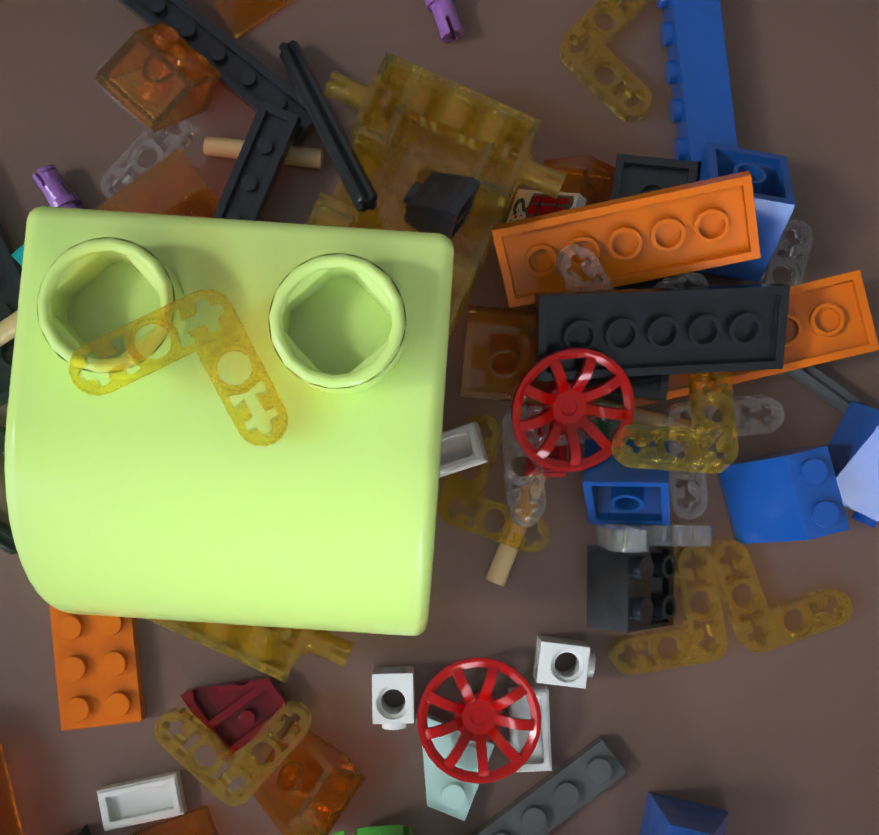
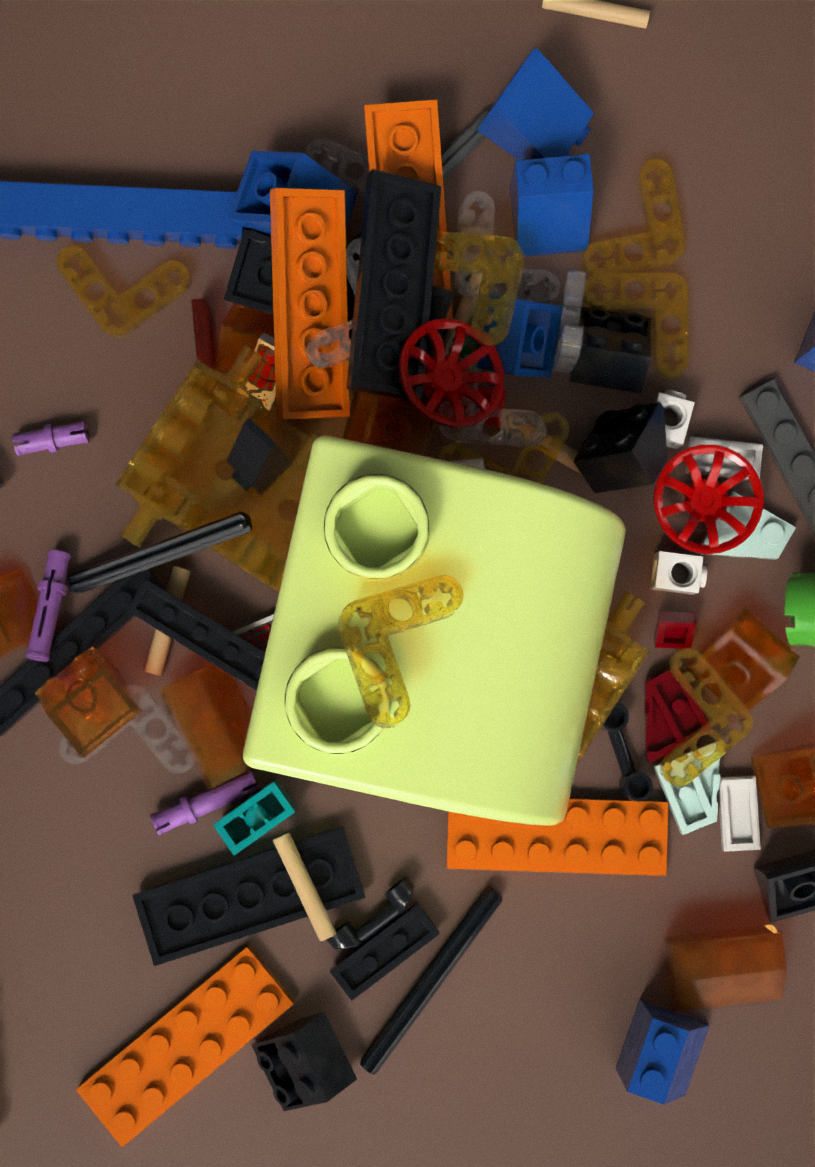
camera: 80 degrees left, 0 degrees up
(142, 755) = (696, 802): none -> light aqua wing
(157, 678) = (632, 784): none -> black bar
(259, 22) = (51, 592): none -> medium lavender pin
(330, 702) = (674, 630): none -> dark red plate
(521, 618) = (624, 448): none -> black slope
(573, 141) = (203, 332): none -> clear red tile

